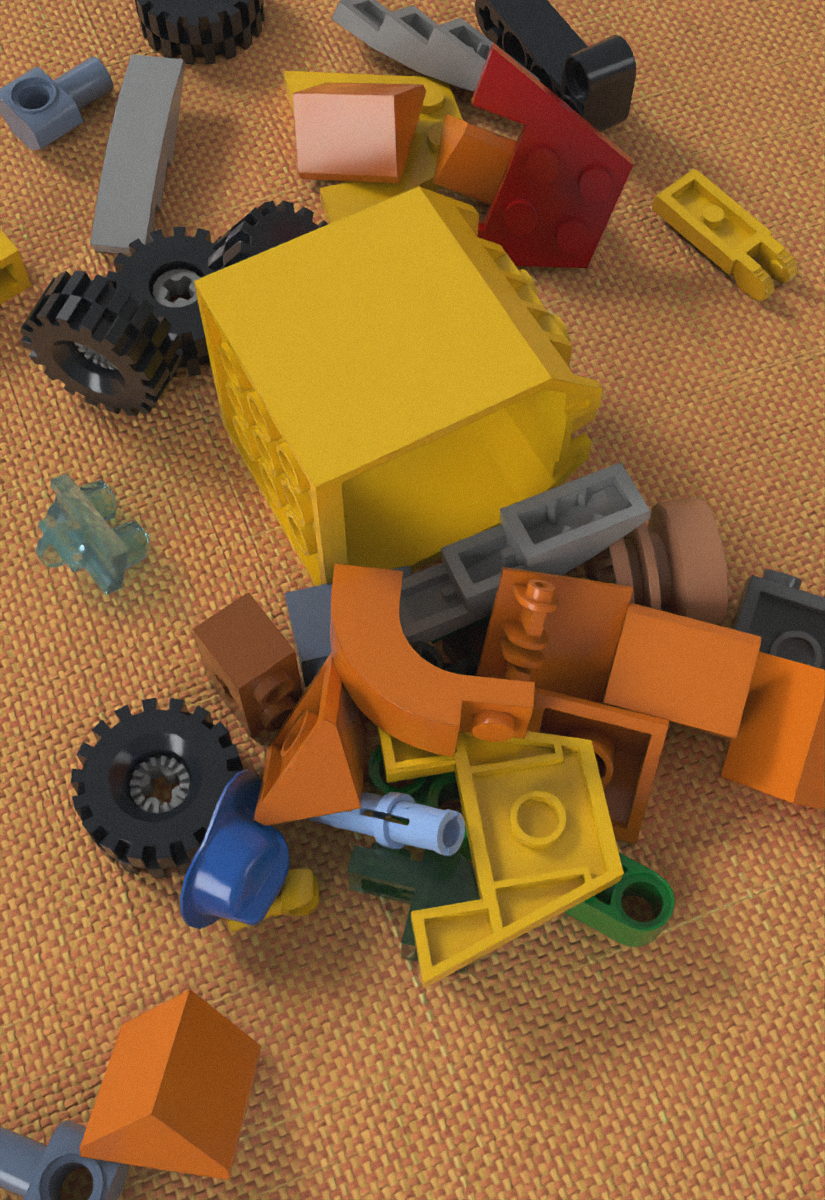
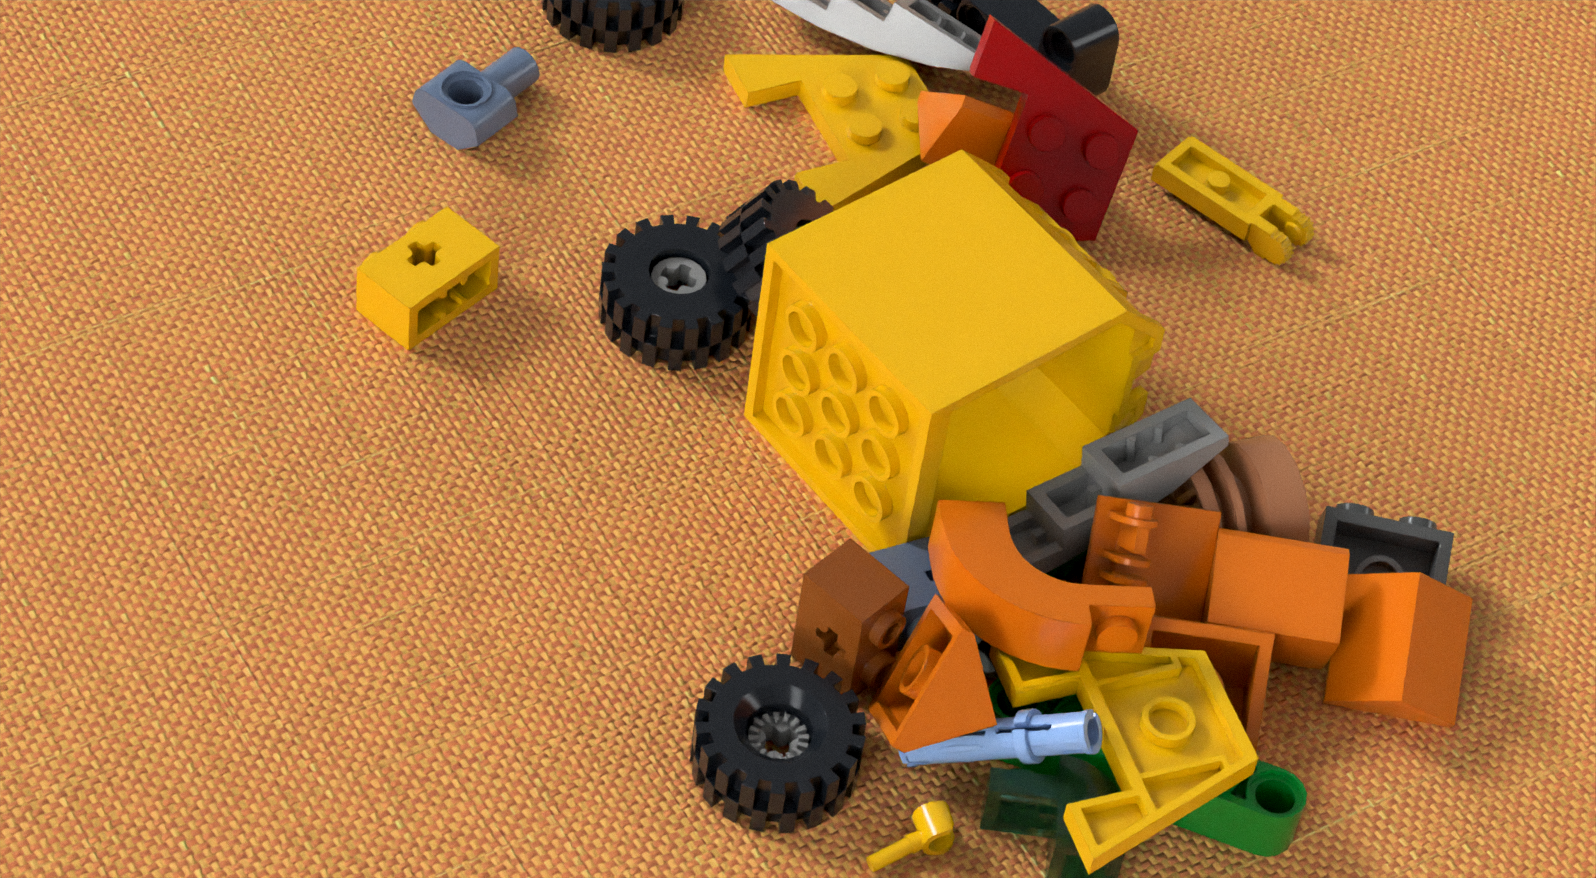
camera: 15 degrees left, 15 degrees down
(80, 537) = (639, 520): clear light blue hips -> none
(102, 343) = (629, 364): black bush -> none
(138, 153) = (591, 147): light grey slope -> none
(238, 862) = (882, 796): blue piece -> none
(356, 130) = (827, 113): slope -> none

